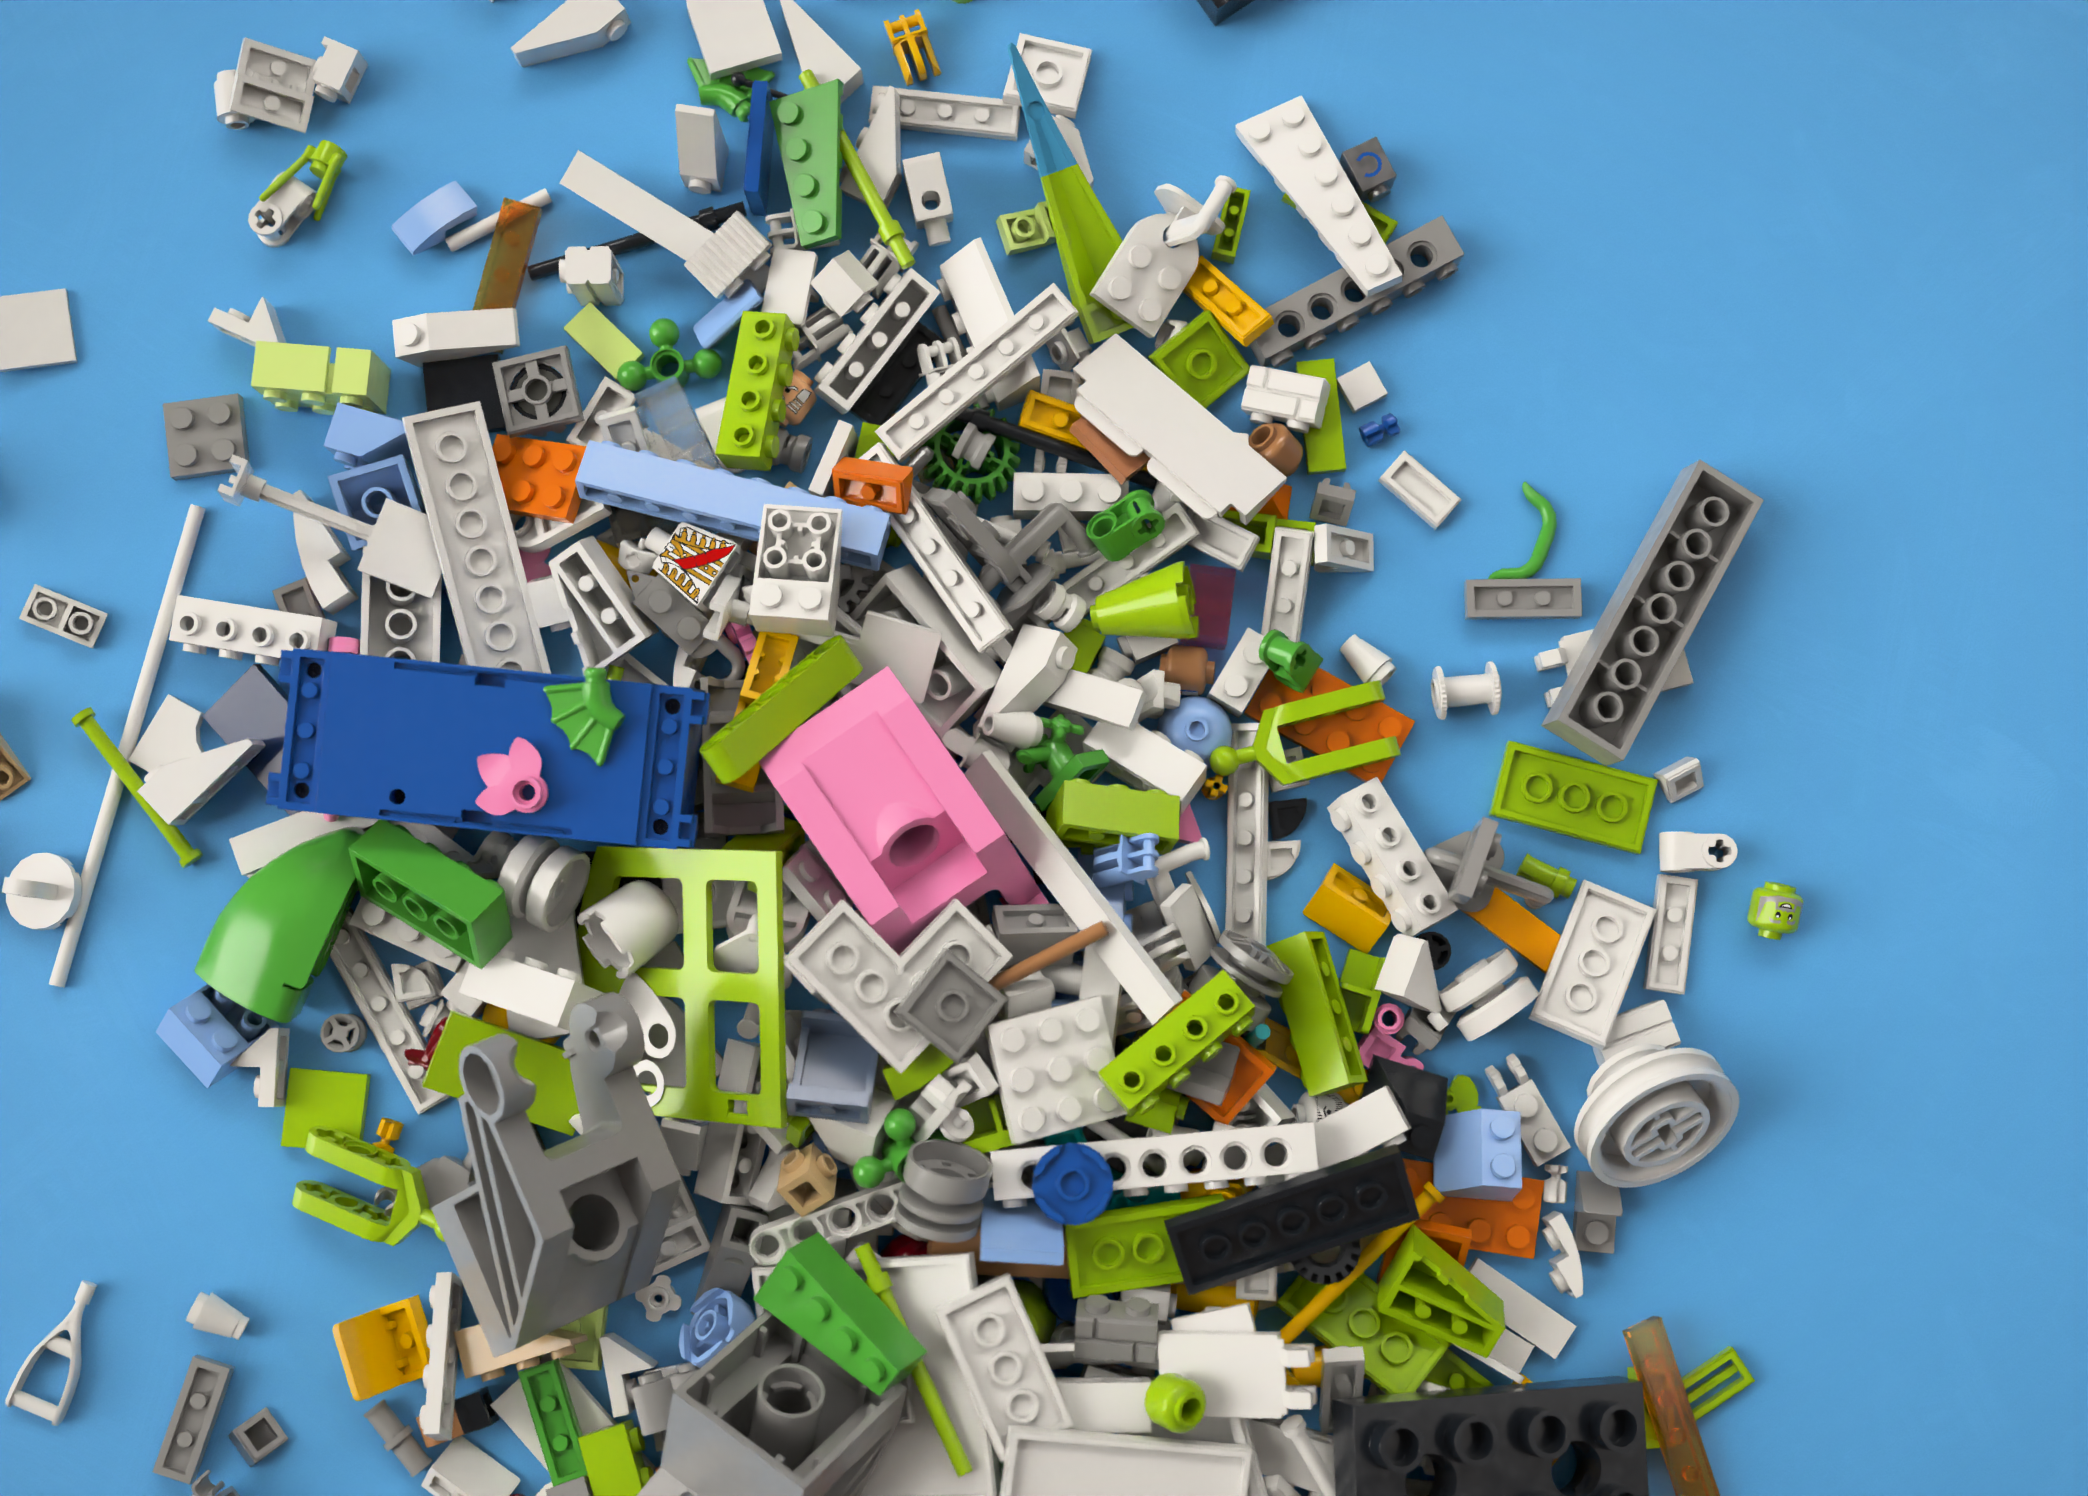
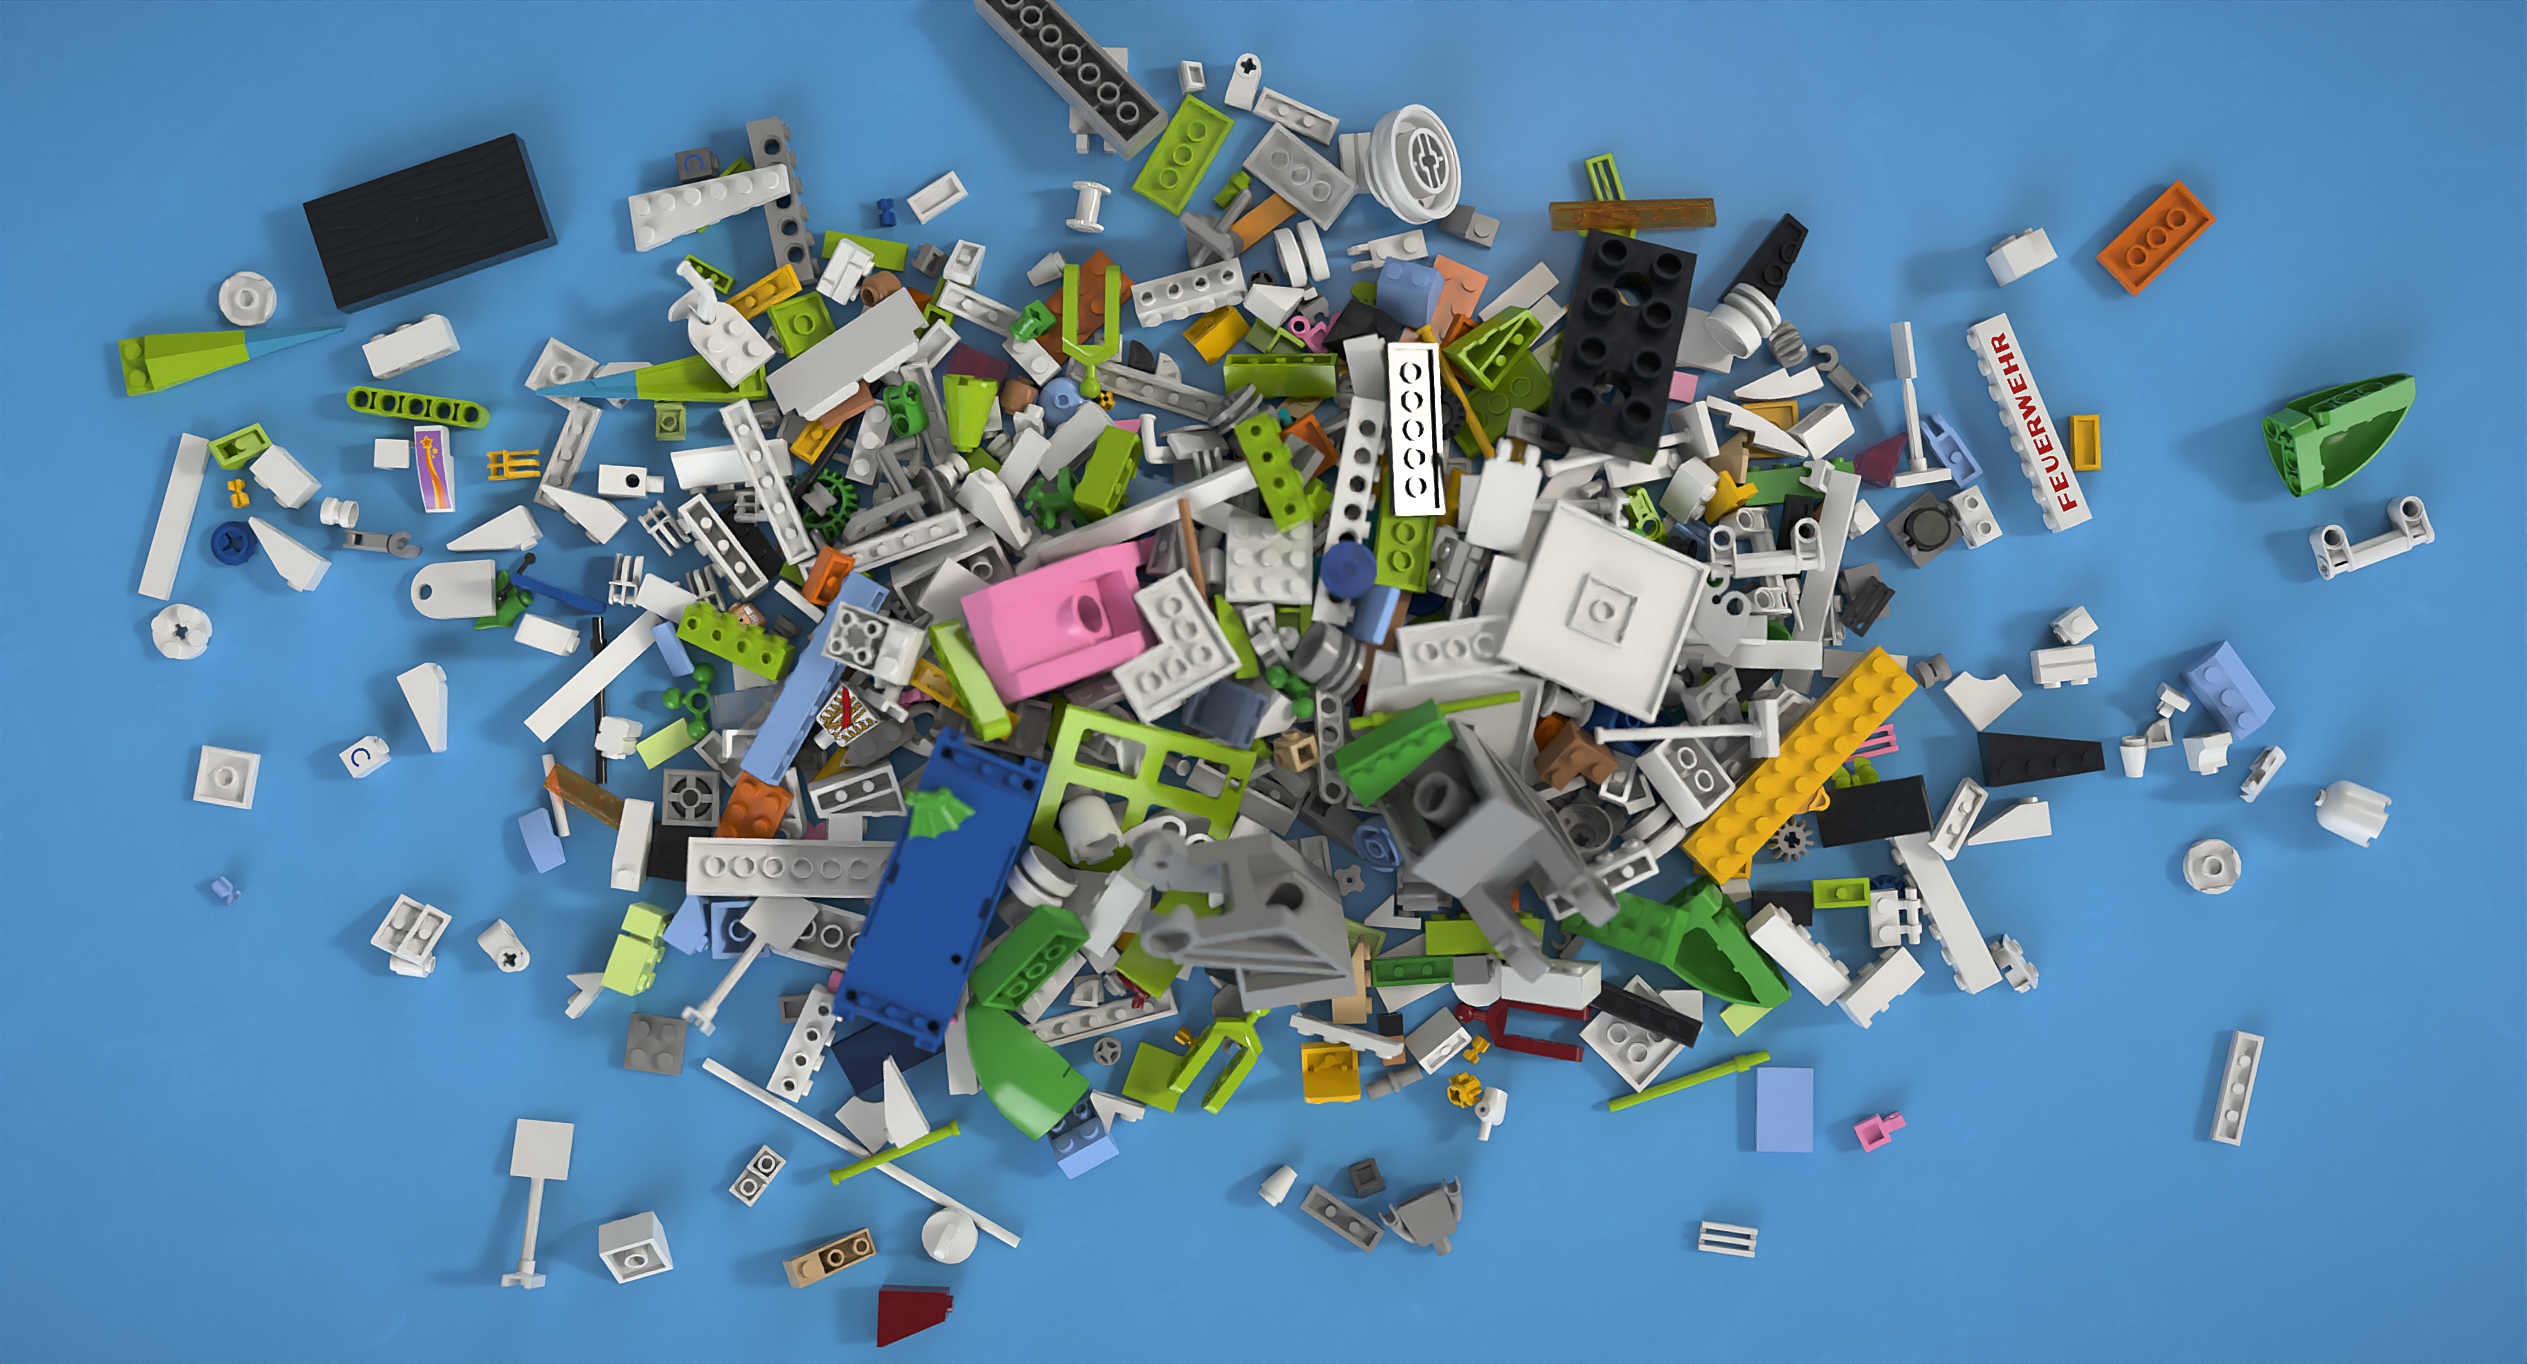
camera: 70 degrees left, 5 degrees up
(62, 1346) = (1271, 1292): white piece -> none
(321, 558) = (767, 982): white slope -> none
(325, 164) = (480, 907): lime plant -> none
(338, 71) = (413, 882): white brick -> none
(507, 778) = (964, 878): bright pink plate -> none
(635, 556) = (830, 758): white piece -> none
(729, 256) = (631, 635): white brick -> none
(809, 146) = (569, 556): bright green wing -> none
(845, 284) = (676, 559): white brick -> none
(890, 229) = (646, 516): lime bar -> none
(950, 1005) = (1205, 618): light grey tile -> none
(1016, 728) = (1027, 524): white cone -> none
(1126, 861) = (1140, 473): light blue arm -> none
(1175, 1402) = (1512, 541): lime head -> none
(1258, 1286) = (1453, 467): white tile -> none
(1361, 387) = (852, 216): white tile -> none
(1523, 599) = (1035, 148): light grey plate -> none
(1543, 541) = (999, 122): bright green animal -> none
(1555, 1188) = (1445, 247): white piece -> none
(1566, 1265) = (1500, 255): white slope -> none
(1775, 910) = (1299, 40): lime head -> none

